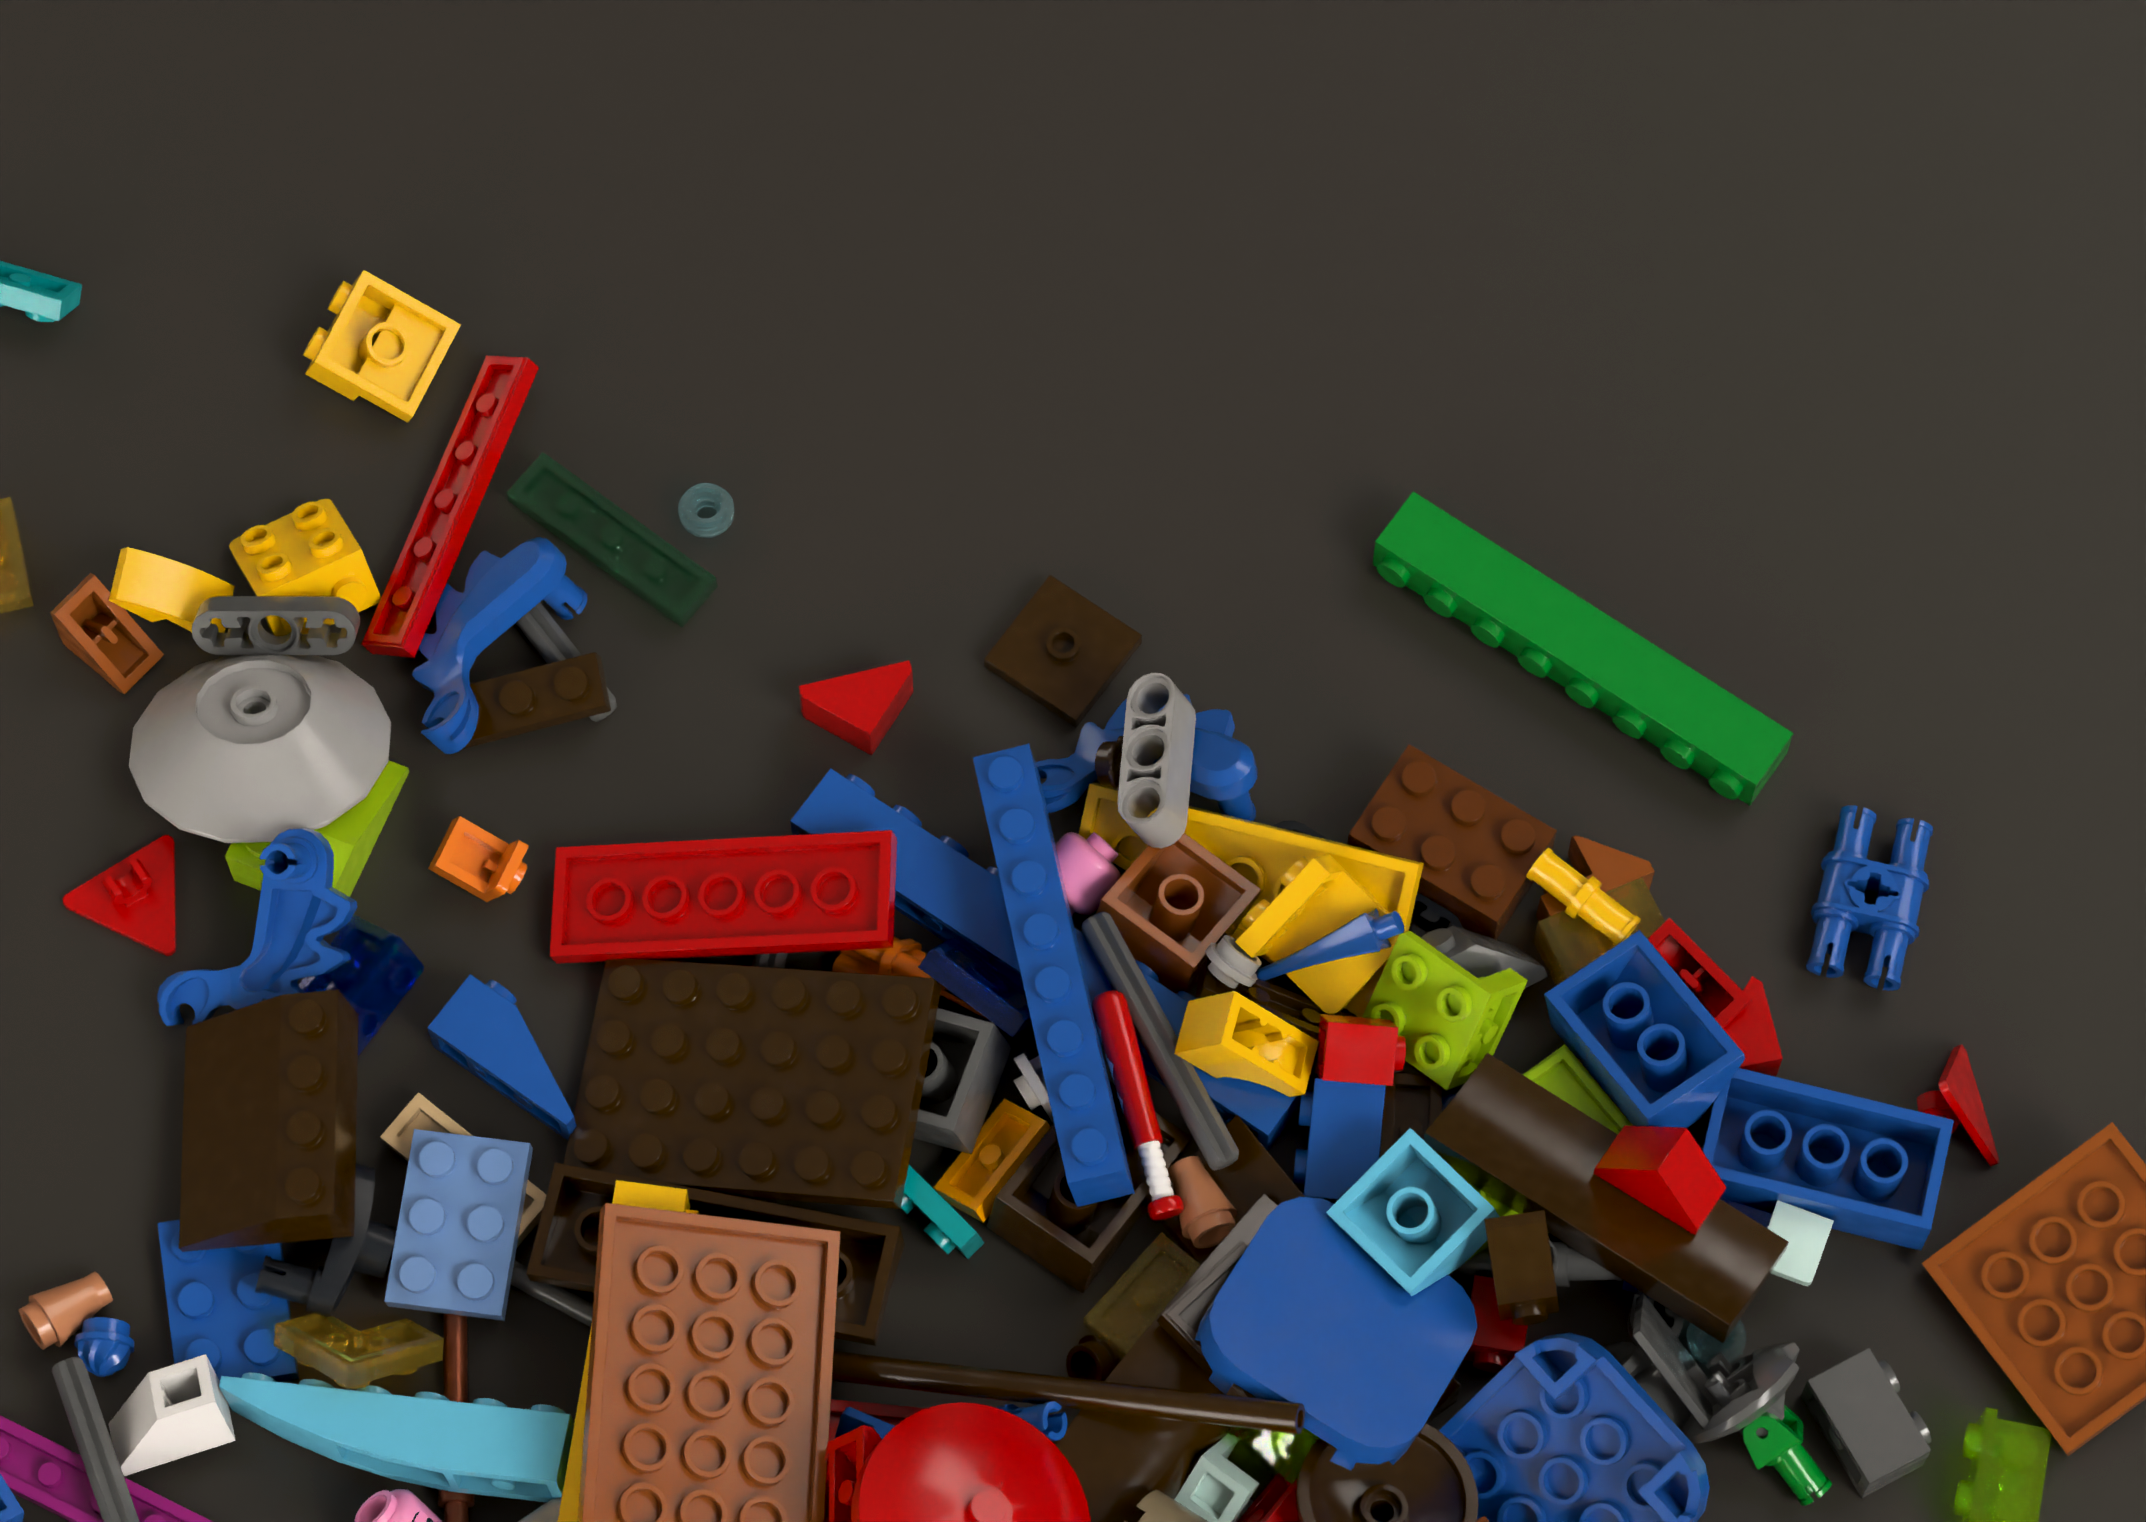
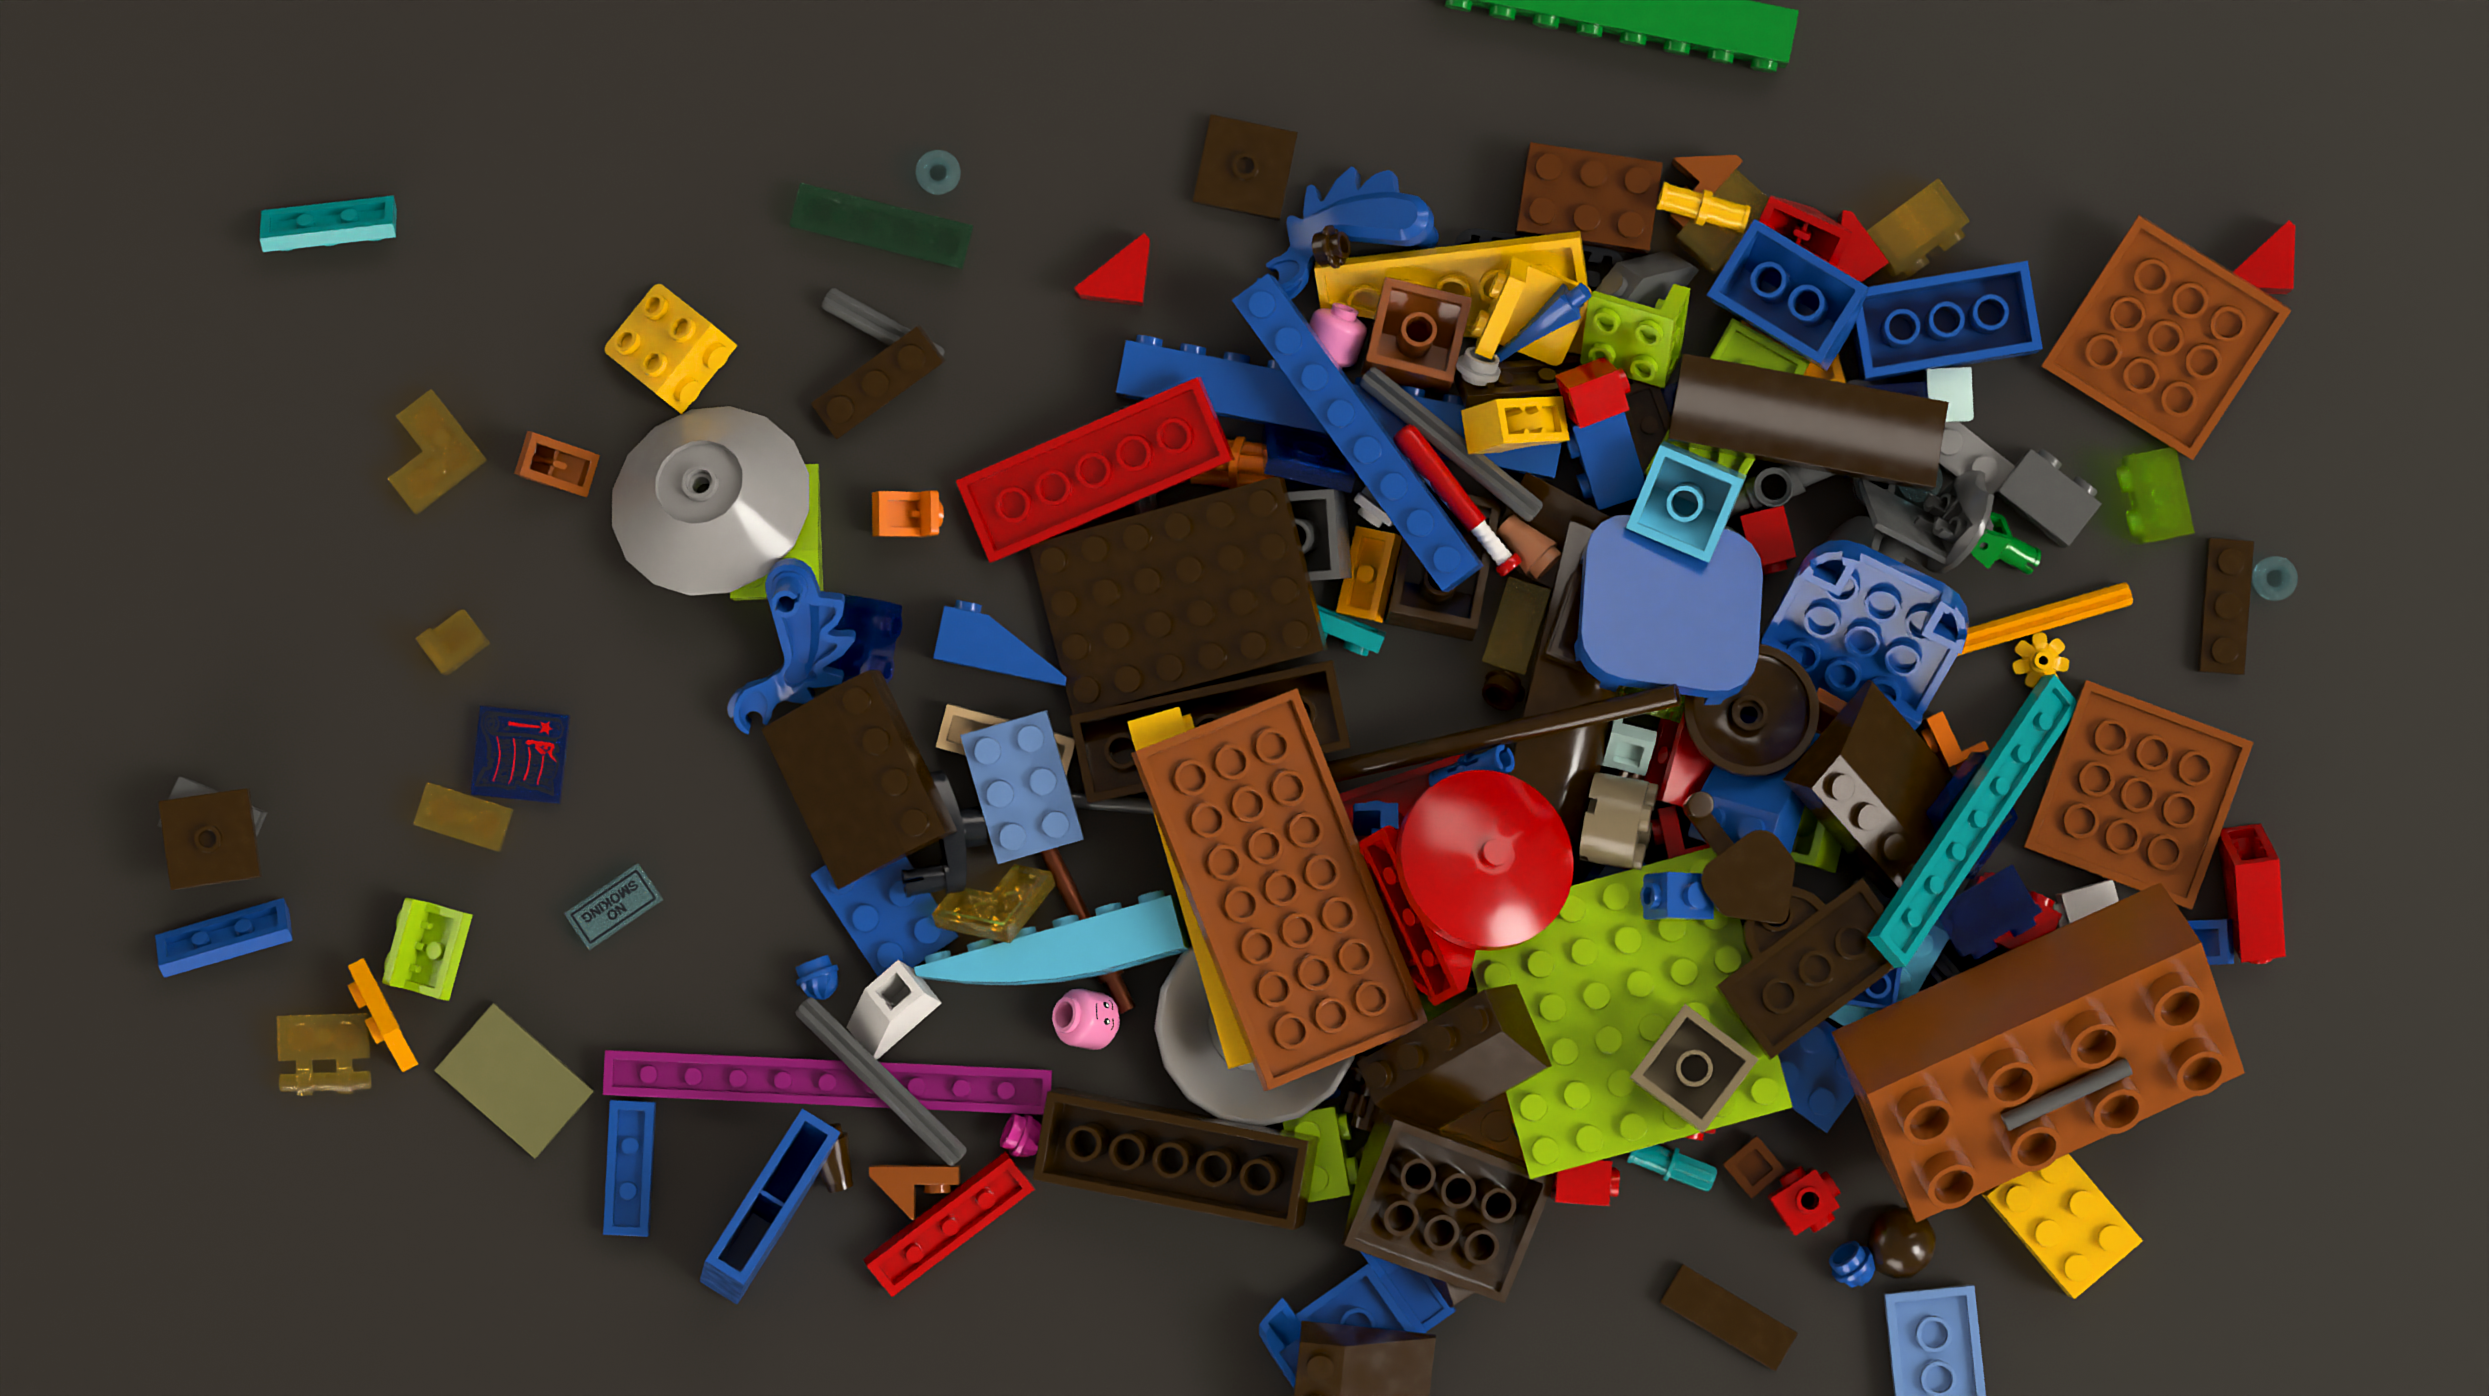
camera: 20 degrees left, 20 degrees up
(60, 1311) = (777, 963): nougat cone -> none
(134, 897) = (671, 644): red piece -> none
(164, 588) = (587, 412): yellow slope -> none
(291, 608) = (645, 409): dark grey beam -> none
(380, 345) = (640, 151): yellow plate -> none
(450, 506) = (751, 251): red tile -> none
(468, 622) = (812, 338): blue animal -> none
(1145, 739) = (1343, 228): light grey beam -> none
(1522, 1267) = (1777, 508): dark brown slope -> none
(1664, 1173) = (1843, 394): red slope -> none
(1779, 1318) = (1965, 451): none -> light grey plate
(1838, 1040) = (1918, 228): none -> clear yellow brick
(1898, 898) = (1915, 88): blue pin -> none
(1961, 1102) = (2023, 235): red piece -> none

